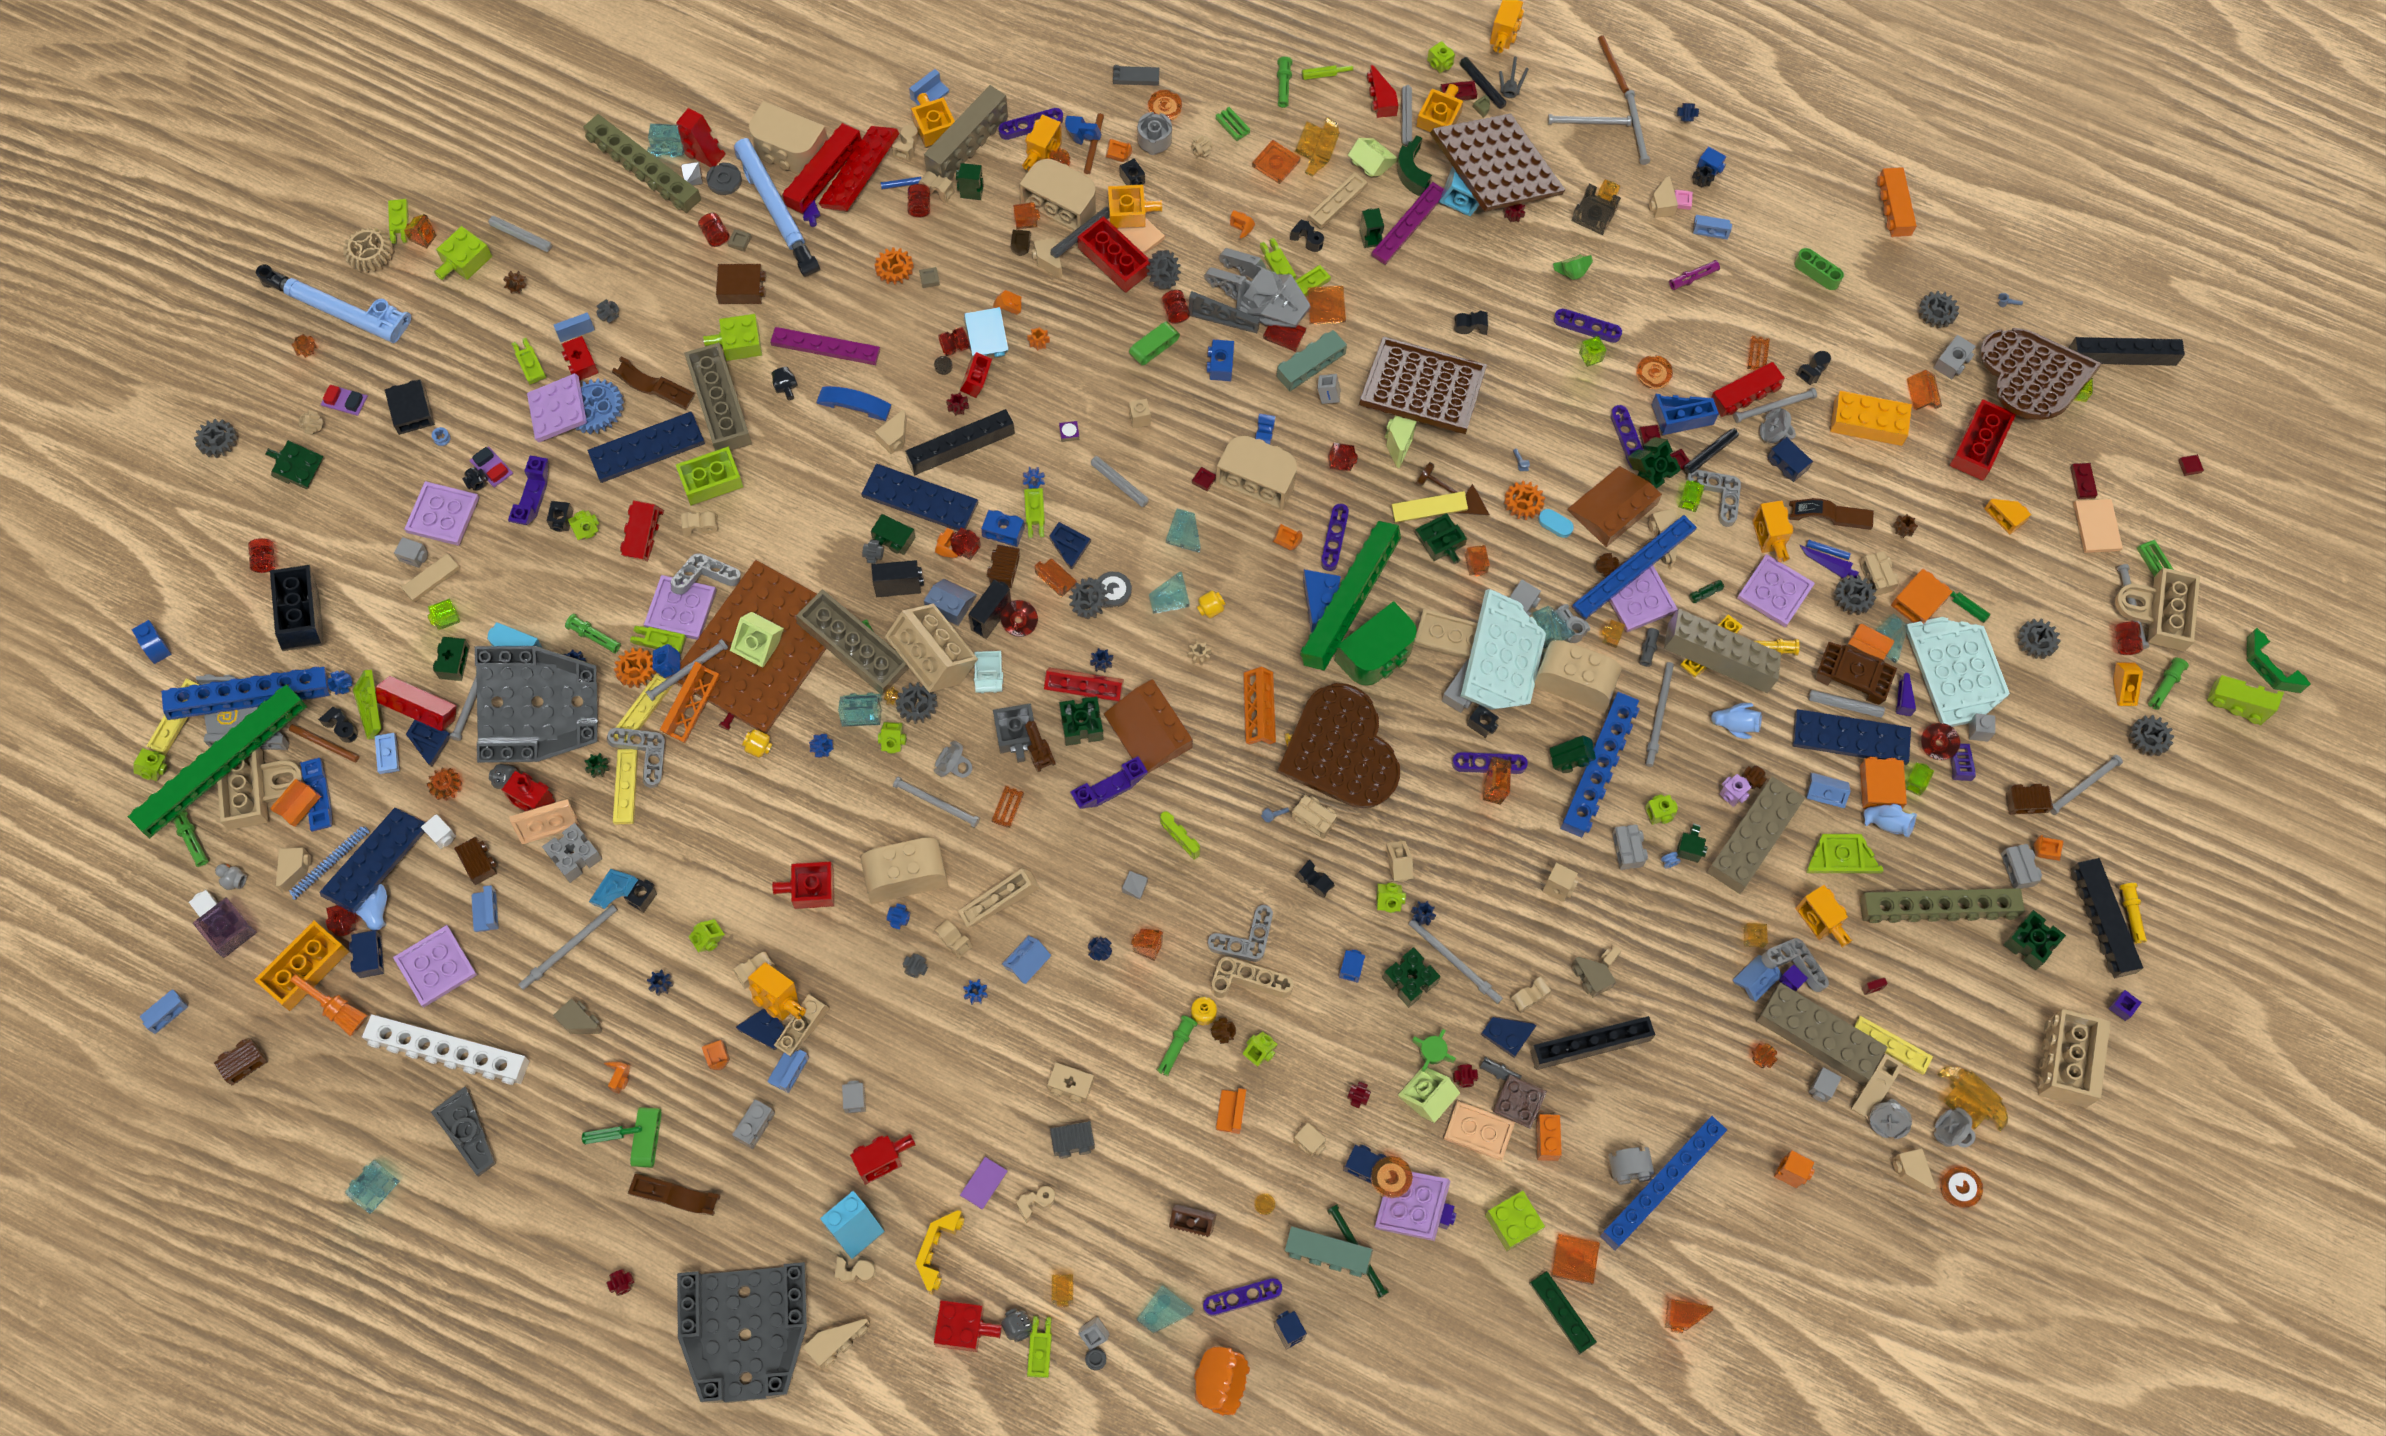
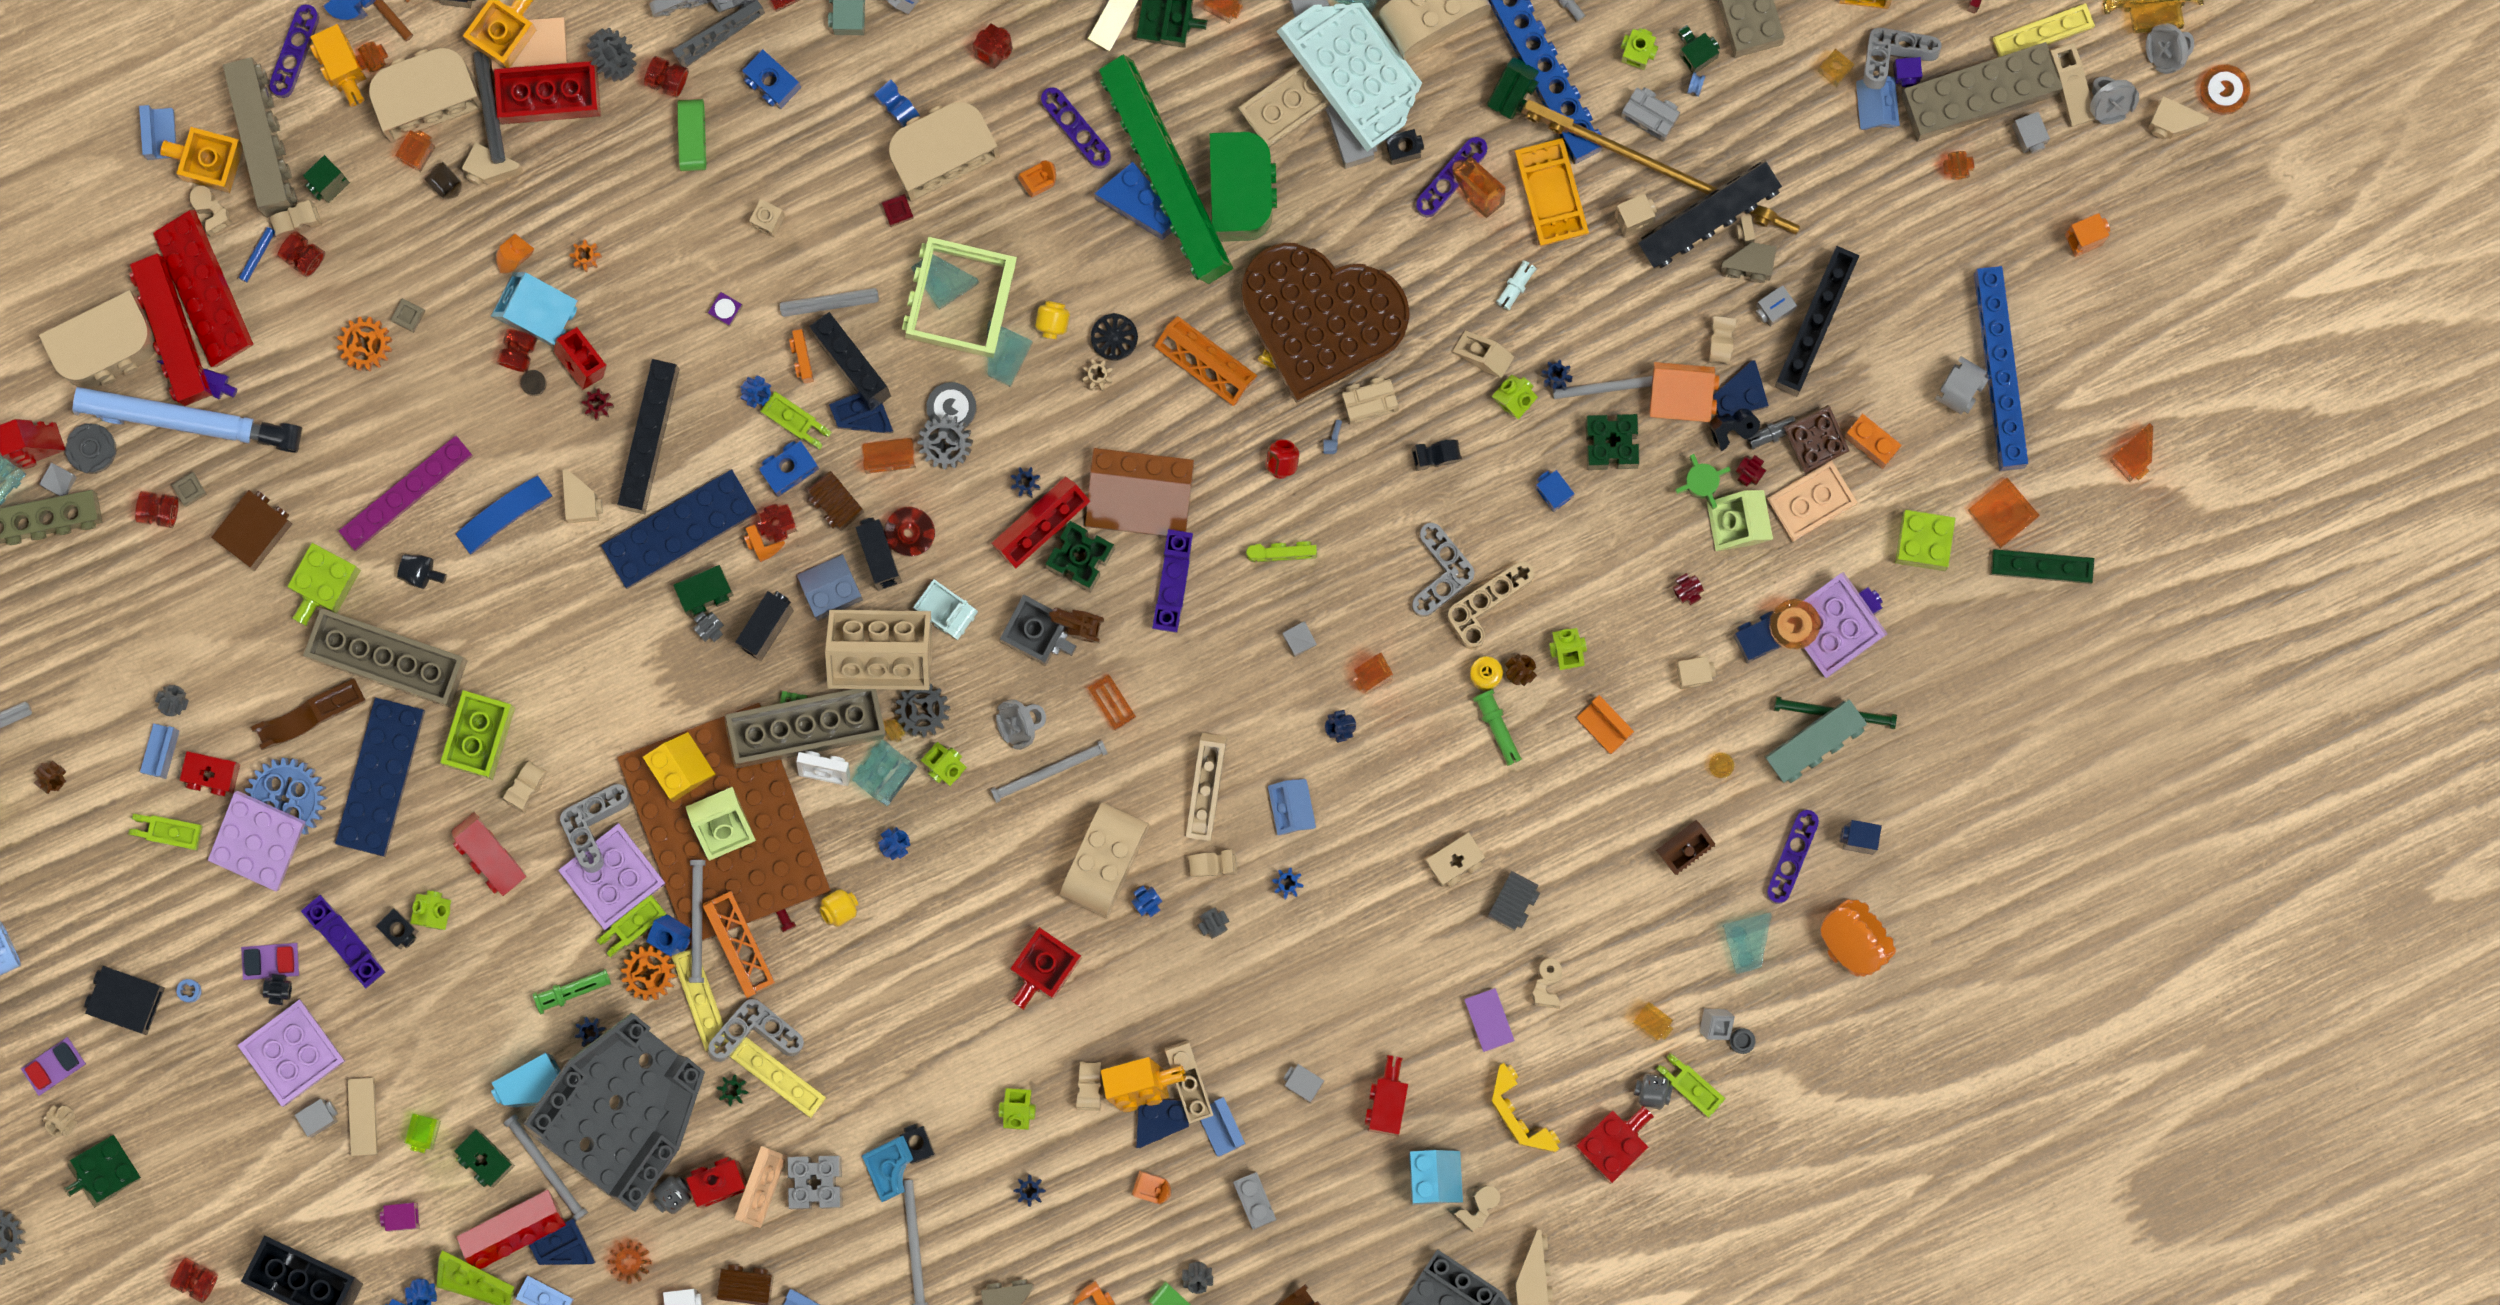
camera: 45 degrees left, 15 degrees up
(381, 639) = (400, 1217): none -> magenta brick
(676, 1126) = (1197, 1277): none -> dark grey gear
(773, 592) = (679, 766): none -> yellow slope
(836, 674) = (824, 769): none -> white plate
(1079, 483) = (799, 346): none -> orange plate
(1092, 512) = (850, 361): none -> black brick
(1194, 568) = (921, 275): none -> yellowish green window
(1230, 646) = (1114, 337): none -> black wheel
(1236, 791) = (1282, 458): none -> red head
(1457, 848) = (1516, 285): none -> light aqua pin
(1478, 995) = (1683, 392): none -> orange brick
(1490, 1049) = (1742, 422): none -> black leg
(1531, 825) = (1551, 192): none -> light orange slope
(1576, 794) = (1559, 123): none -> pearl gold bar
(1579, 1011) = (1775, 306): none -> light grey brick
(1601, 925) = (1709, 213): none -> black brick

